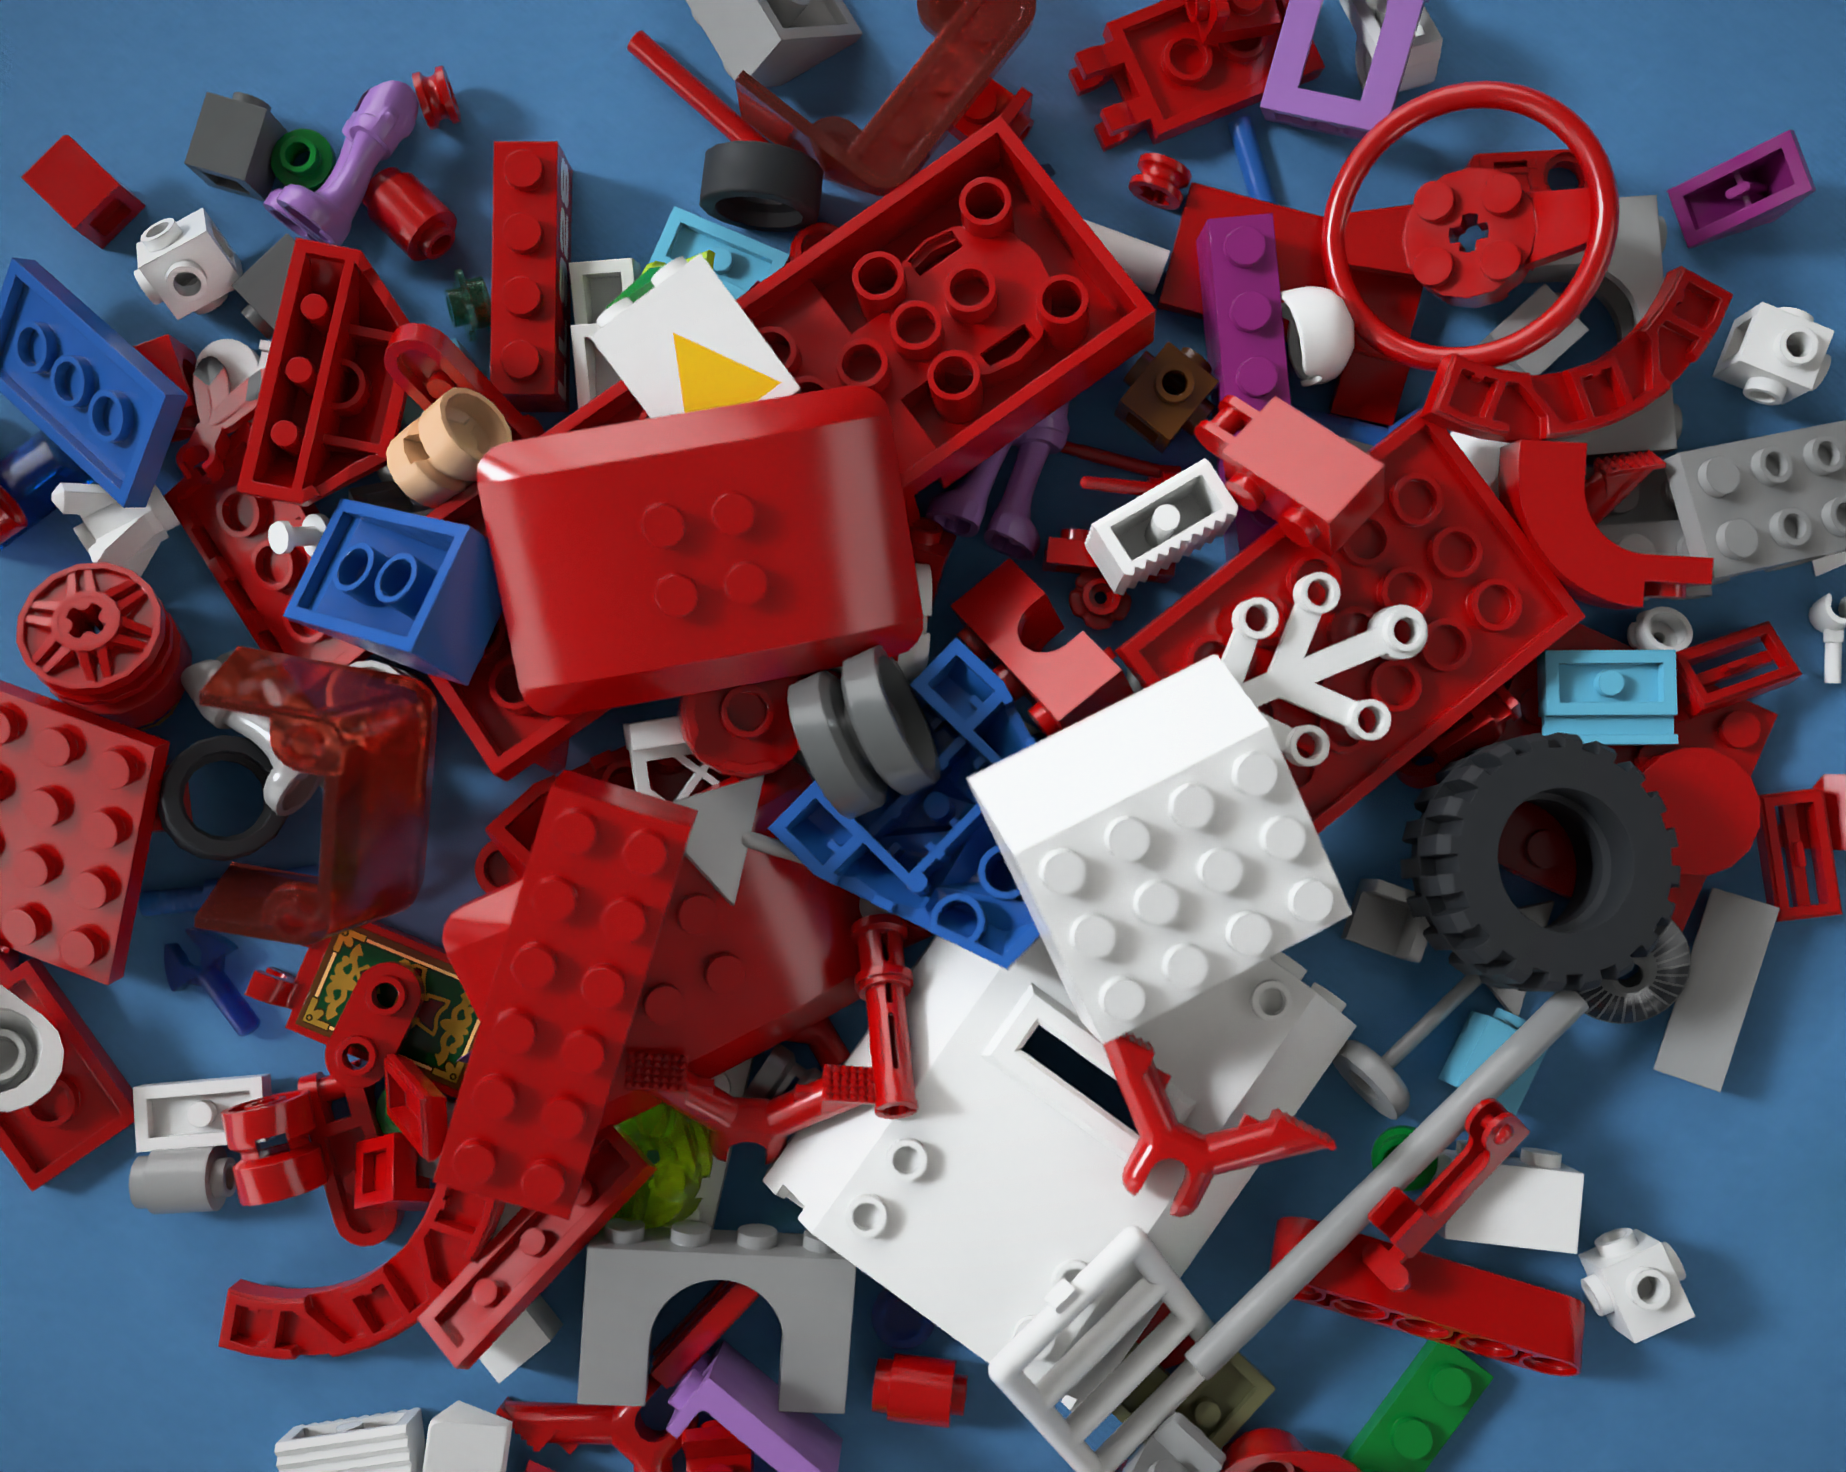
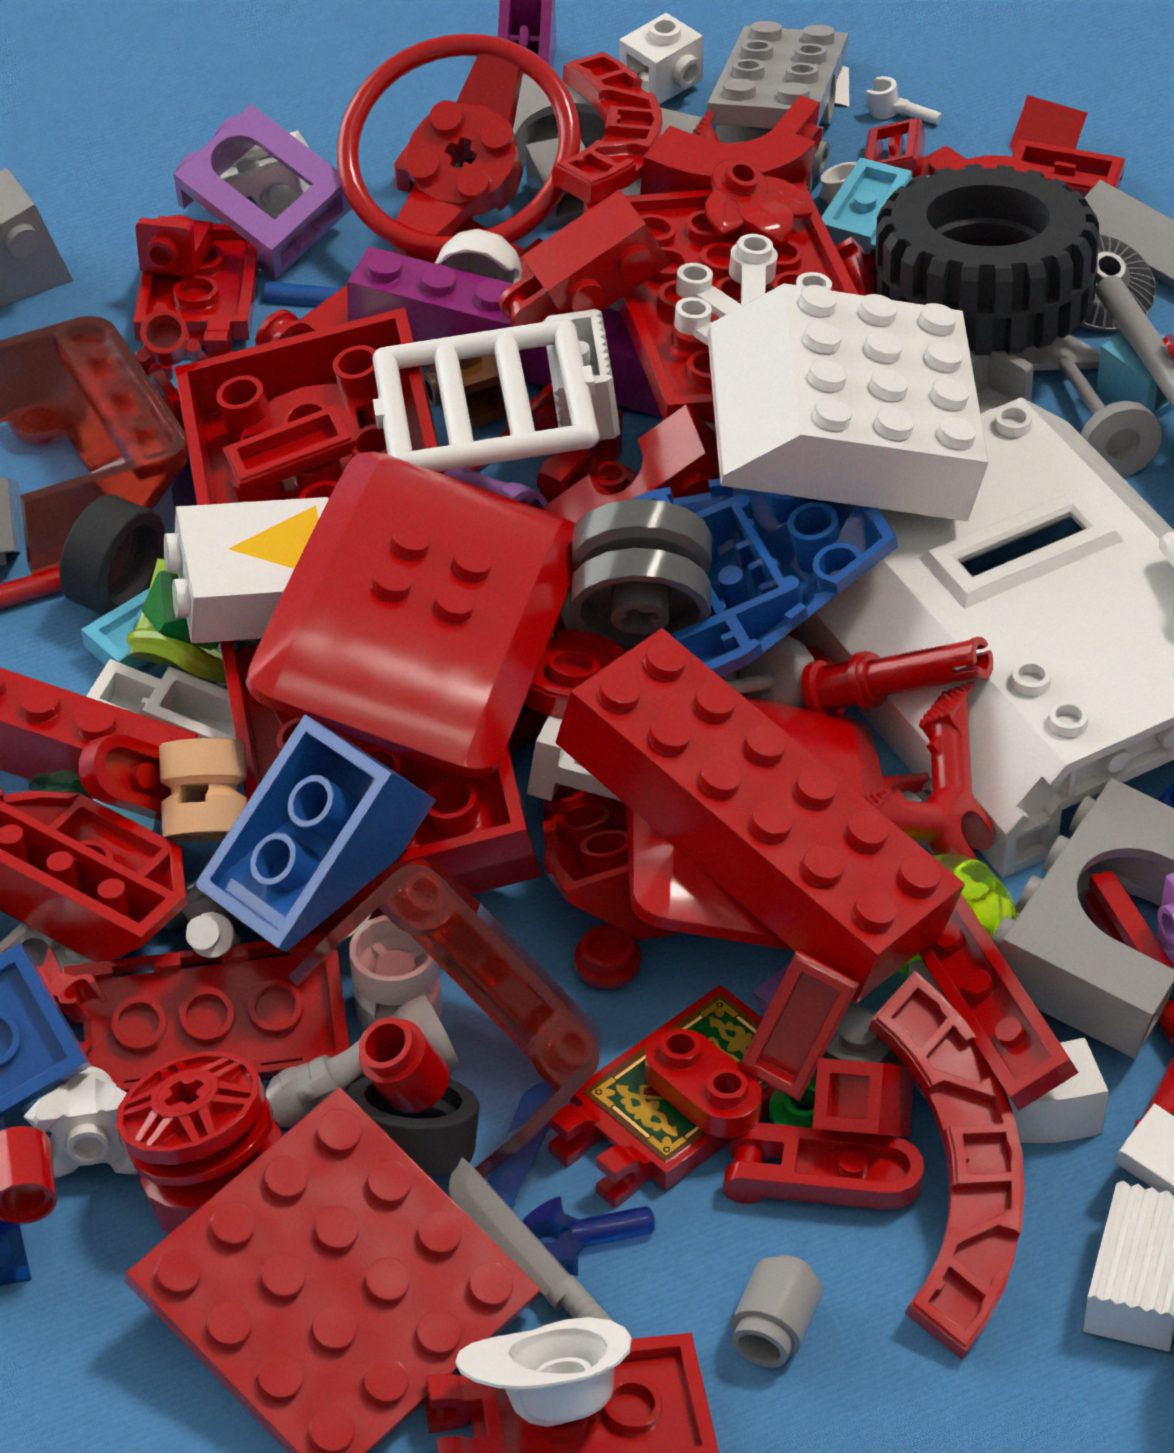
camera: 65 degrees left, 40 degrees down
(163, 936) = (508, 1231): none -> light grey piece
(190, 1110) = (714, 1274): white plate -> none
(215, 784) = (403, 1065): none -> red brick
(280, 1169) = (781, 1179): red wheel -> none
(903, 298) = (290, 449): none -> red tile
(1034, 87) = (166, 340): none -> red plant
(1089, 390) = (505, 344): none -> white bar
(1203, 1155) = (1095, 503): red piece -> none
(1493, 597) = (750, 199): none -> red plate

